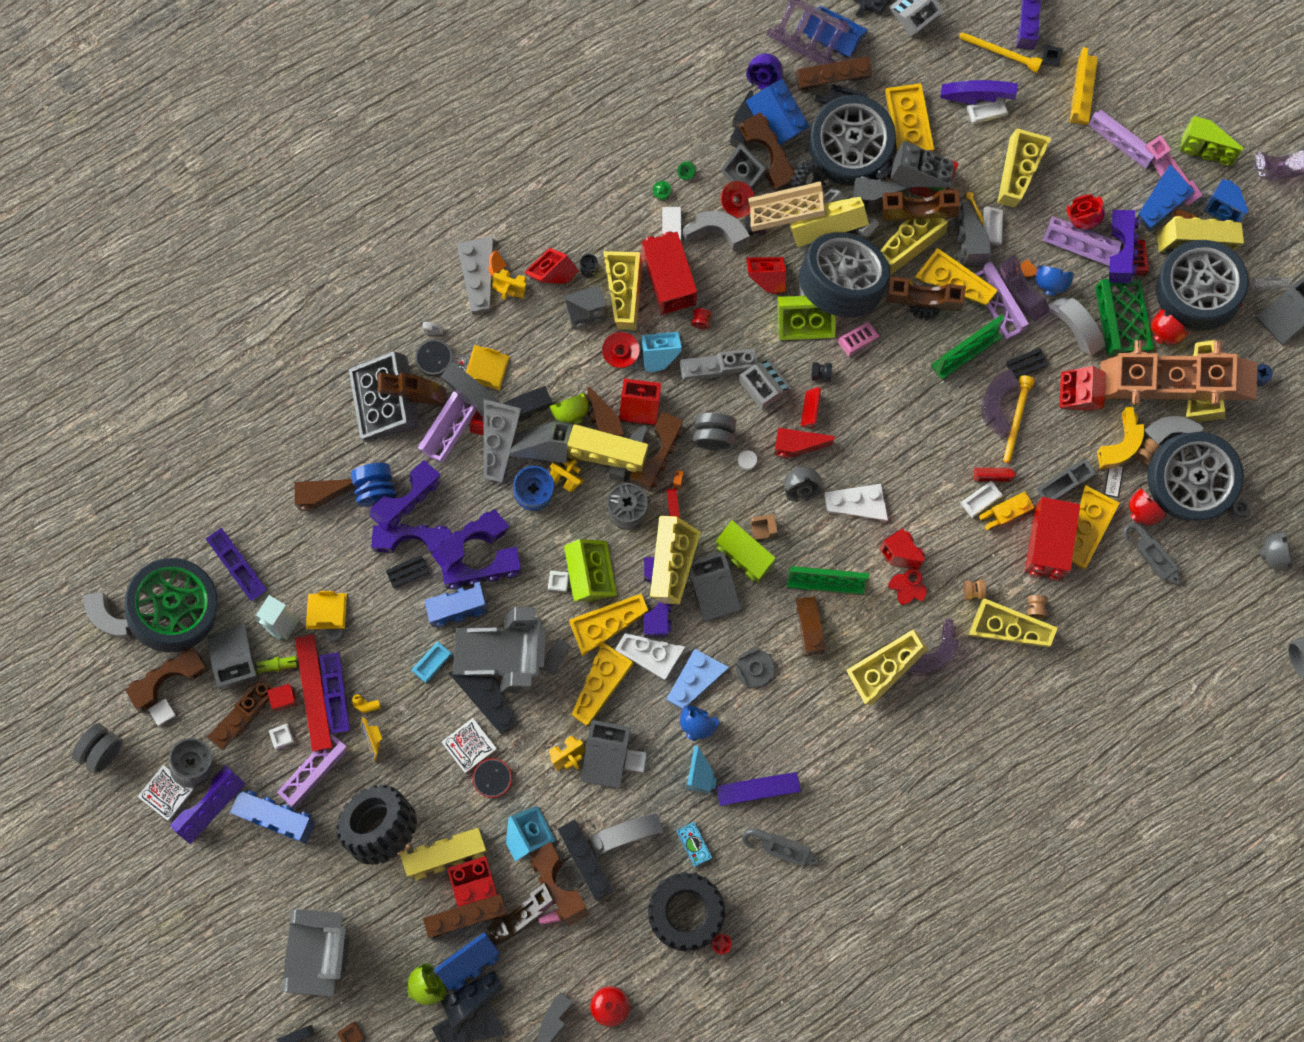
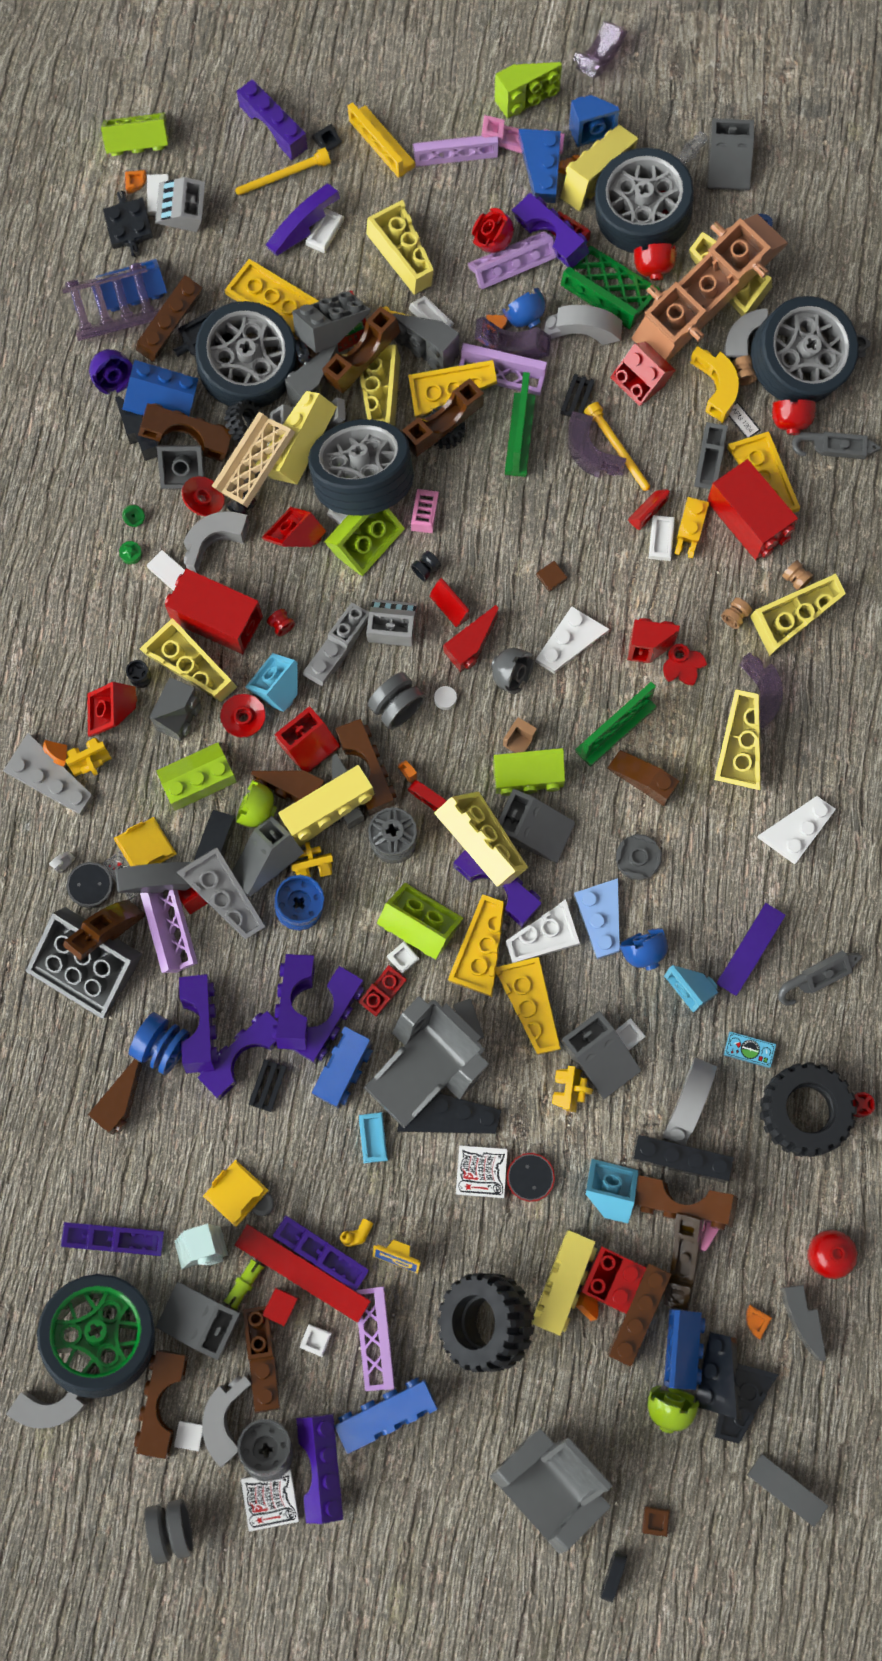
camera: 45 degrees left, 0 degrees up
(182, 719) = (215, 1430): none -> light grey arch
(443, 882) = (588, 1306): none -> orange tile
(526, 994) = (757, 1321): none -> orange tile
(527, 587) = (383, 990): none -> red slope
(557, 357) = (196, 776): none -> lime slope
(866, 753) = (797, 830): none -> white wing
(889, 454) = (551, 576): none -> reddish brown tile

